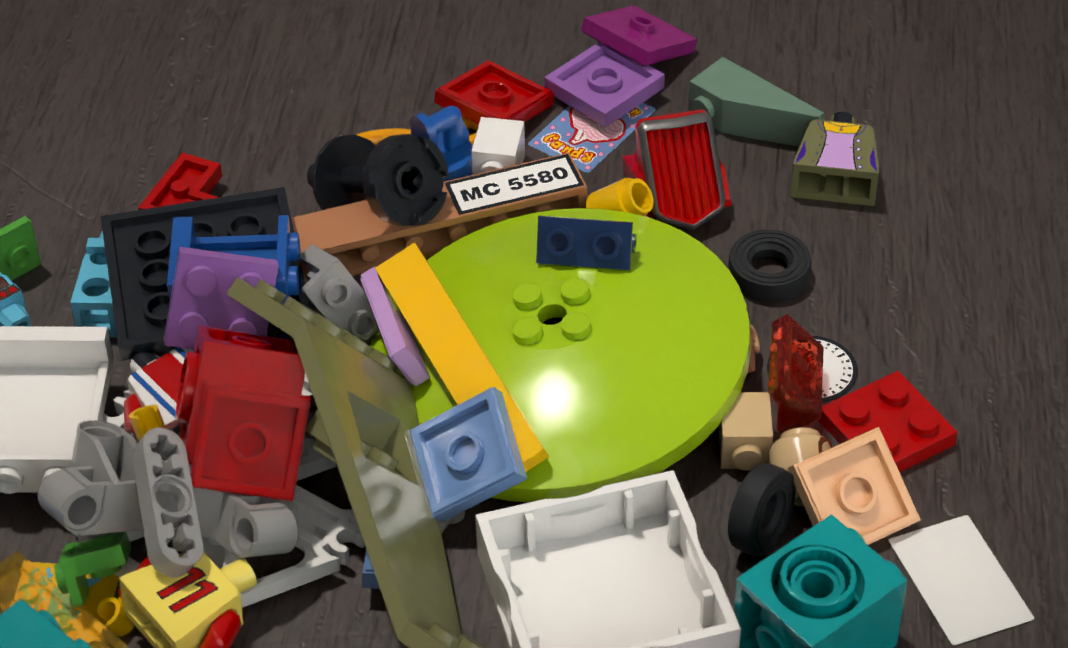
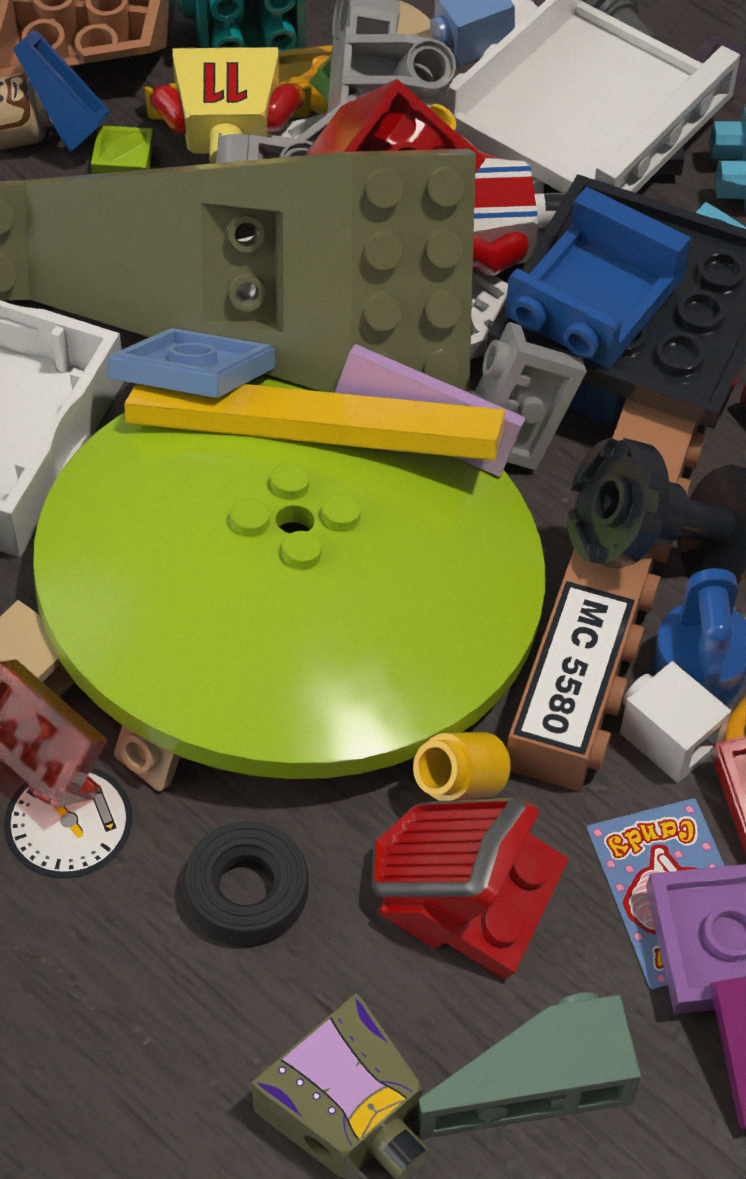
camera: 125 degrees right, 10 degrees up
(158, 522) = (287, 60): light grey beam -> none
(202, 297) = (540, 222): medium lavender plate -> none
(249, 440) = (324, 122): red tile -> none
(585, 242) = (339, 612): dark blue hinge -> none

